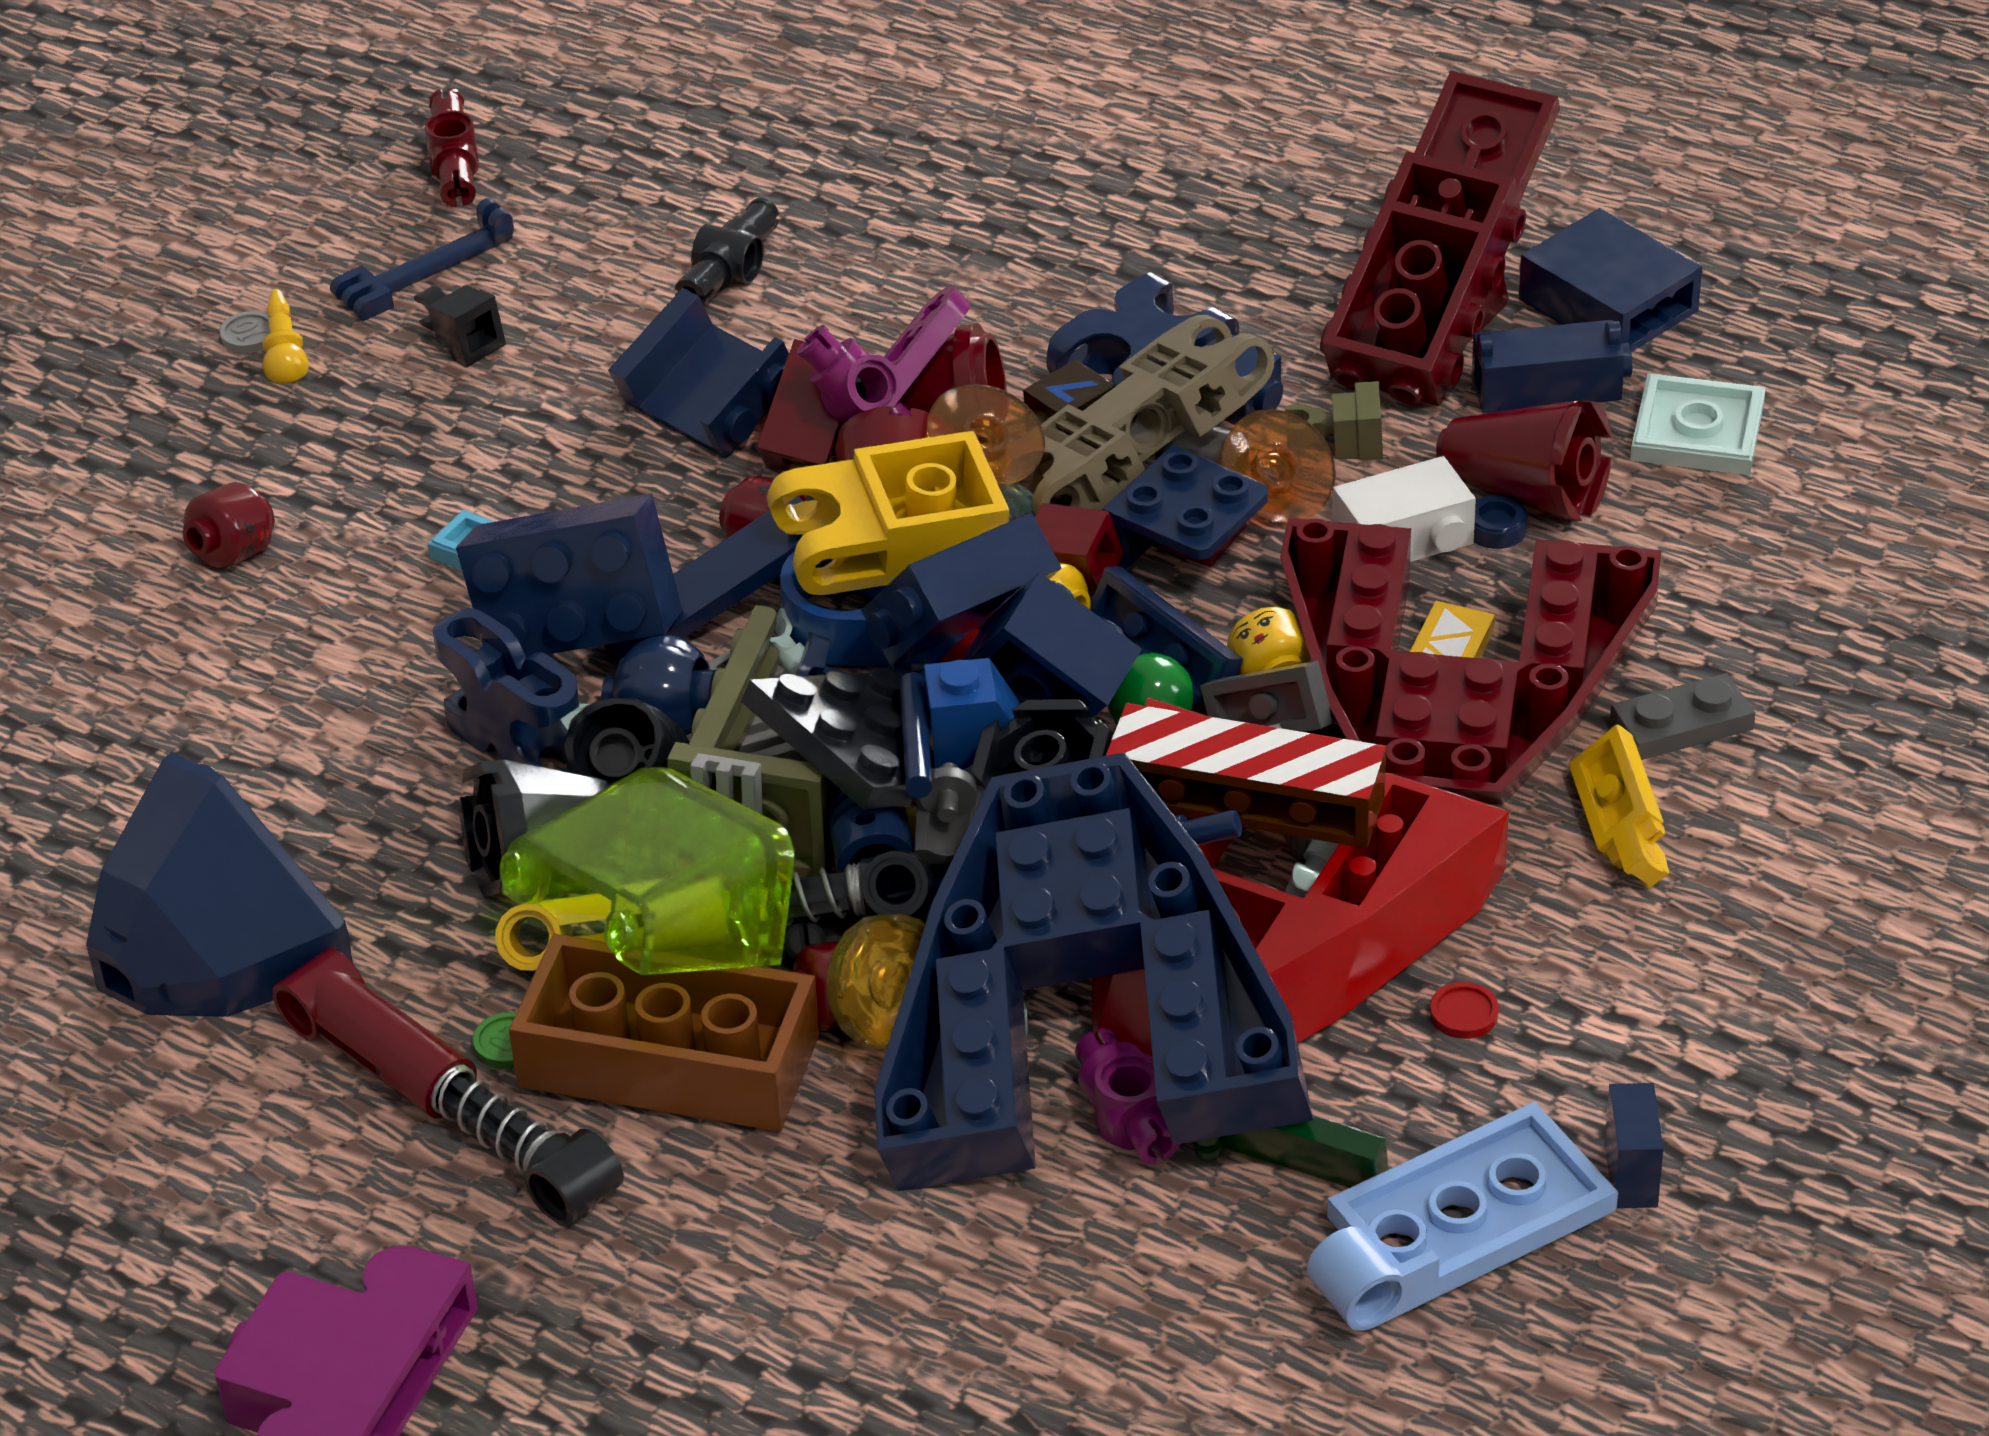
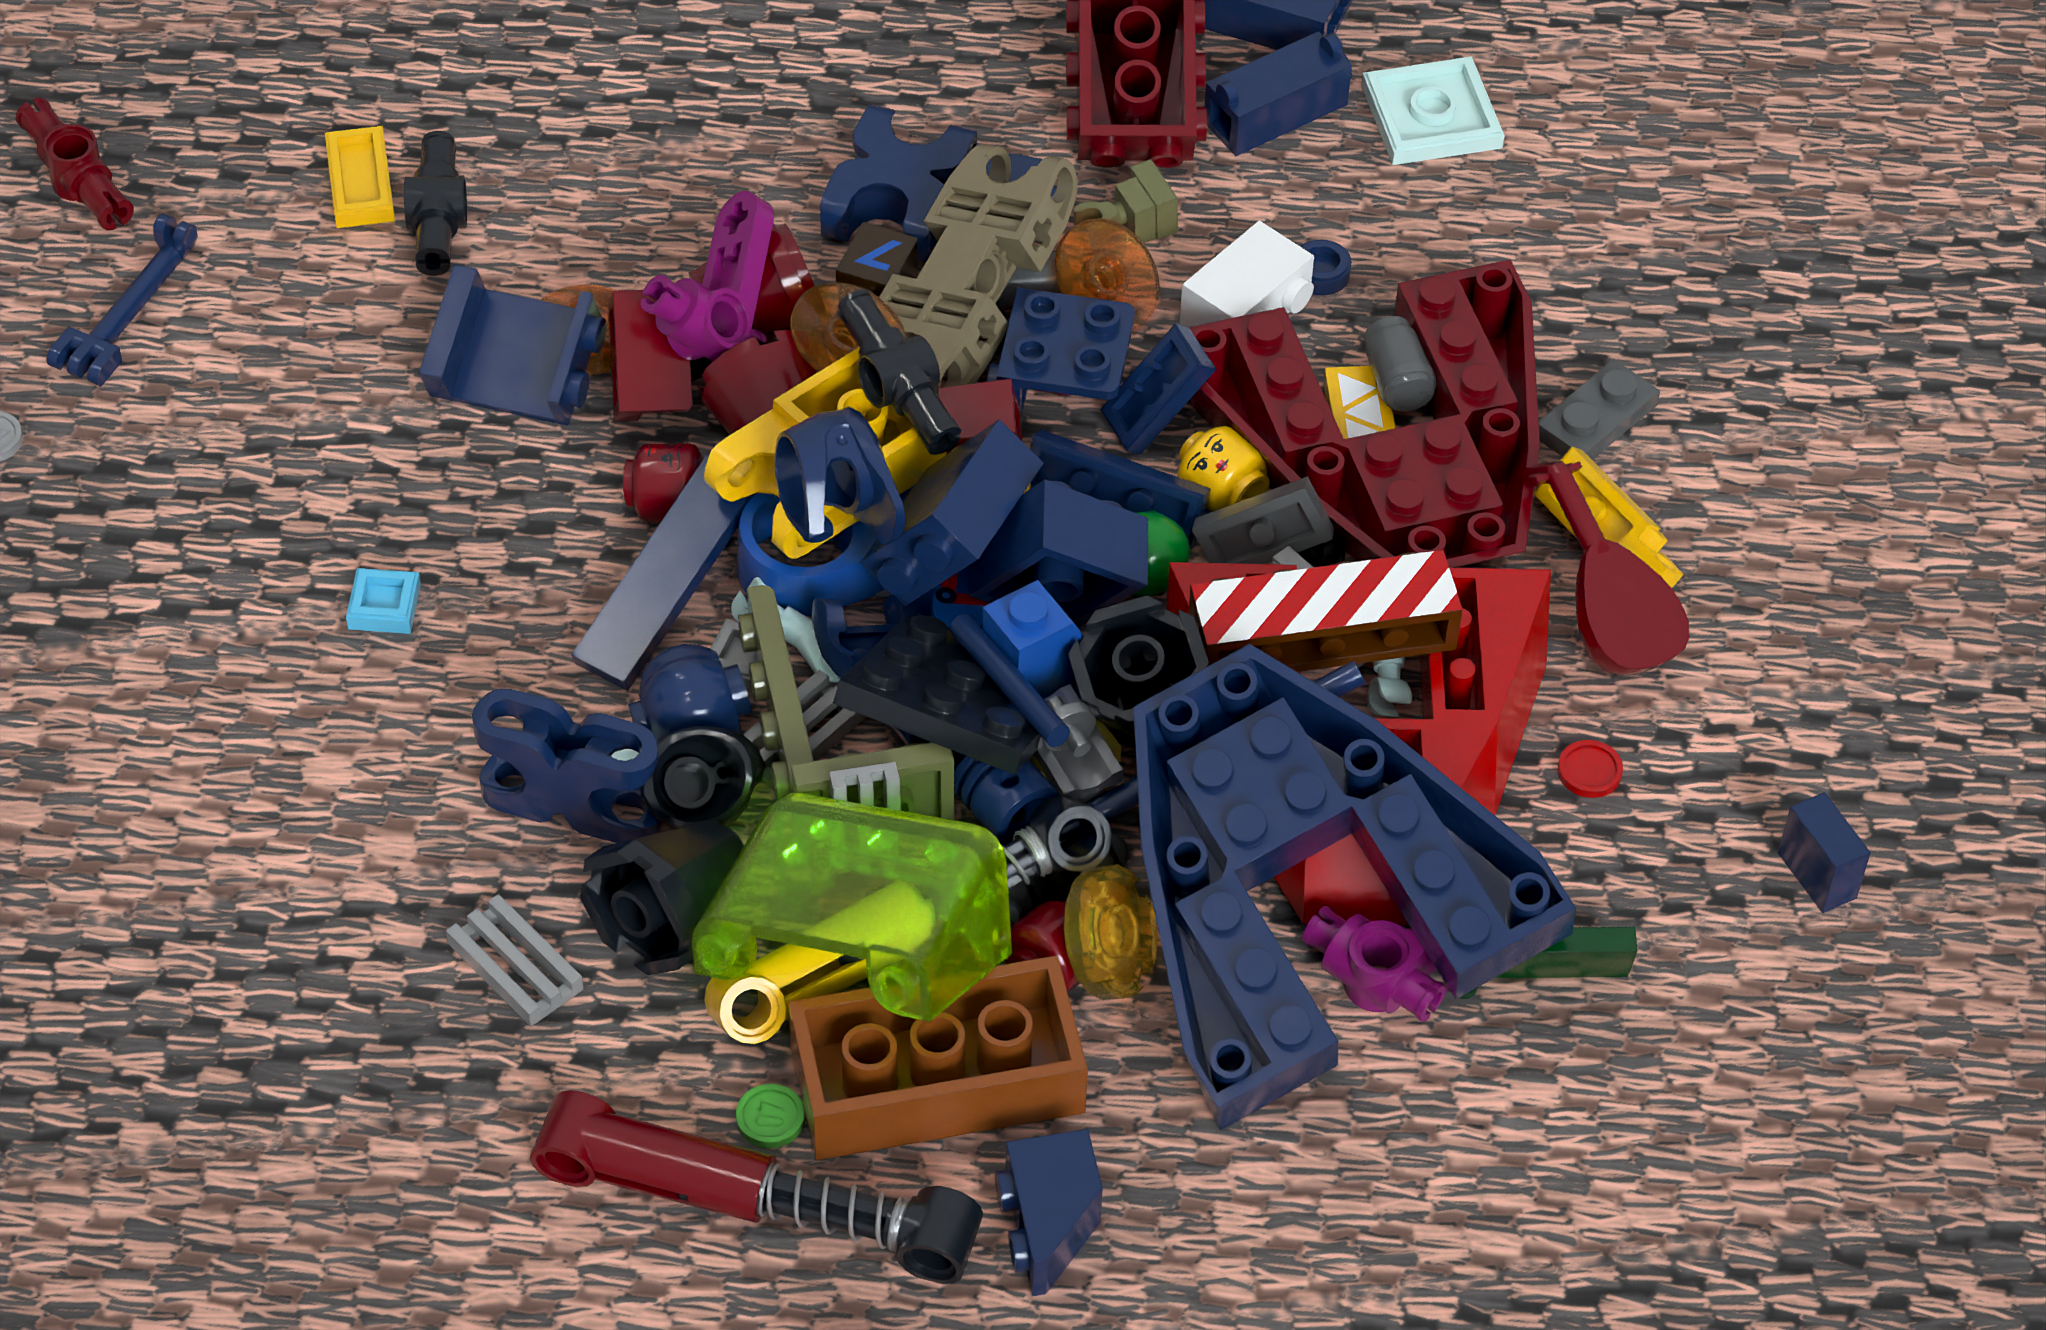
camera: 30 degrees left, 10 degrees up
(202, 903) = (426, 1093): dark blue brick -> none
(228, 525) = (137, 662): dark red head -> none
(283, 347) = (54, 458): yellow bar -> none
(370, 814) = (484, 925): none -> light grey tile
(463, 322) = (221, 359): black piece -> none
(574, 575) = (555, 615): dark blue brick -> none
(680, 217) = (359, 177): none -> yellow tile
(689, 1189) = (1054, 1200): none -> dark blue slope
(856, 504) = (837, 464): none -> dark blue helmet
(973, 454) = (898, 372): none -> black pin
(1252, 565) = (1158, 389): none -> dark blue plate
(1379, 1282) = (1693, 1059): light blue hinge -> none
(1498, 611) = (1399, 364): none -> dark grey piece
(1534, 455) = (1324, 193): dark red cone -> none
(1576, 873) = (1622, 605): none -> dark red piece

